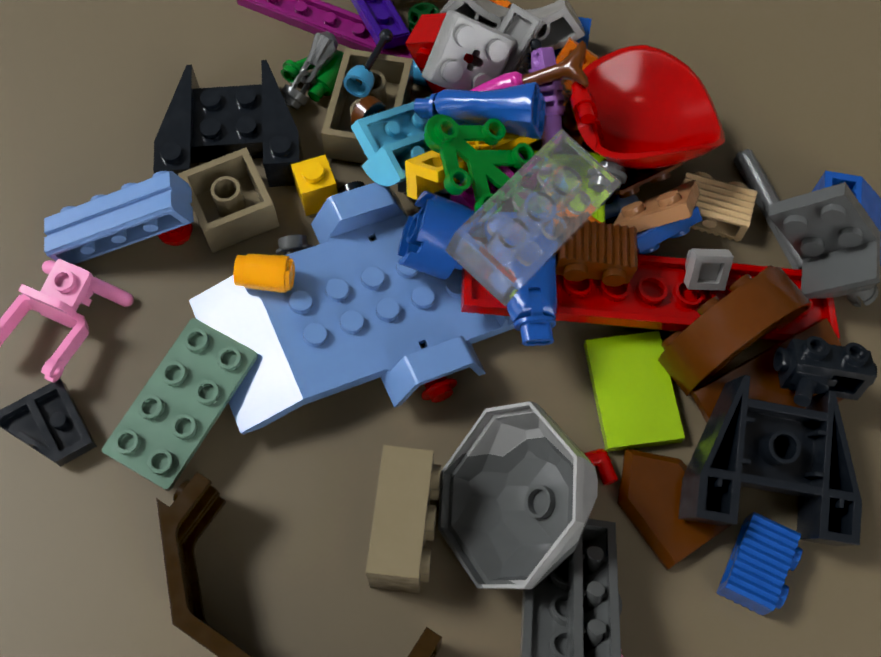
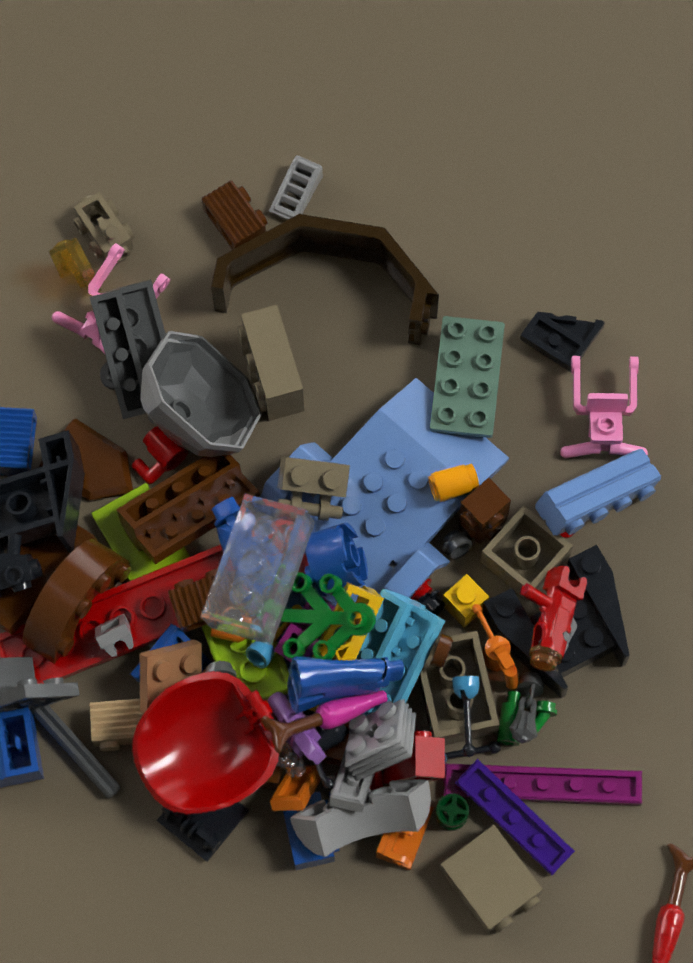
camera: 160 degrees right, 5 degrees up
(237, 107) = (556, 619): none -> red piece
(243, 236) = (484, 511): none -> reddish brown brick
(310, 120) = (497, 652): none -> orange piece
(423, 324) = (316, 478): none -> dark tan brick
(580, 379) = (181, 506): none -> reddish brown brick

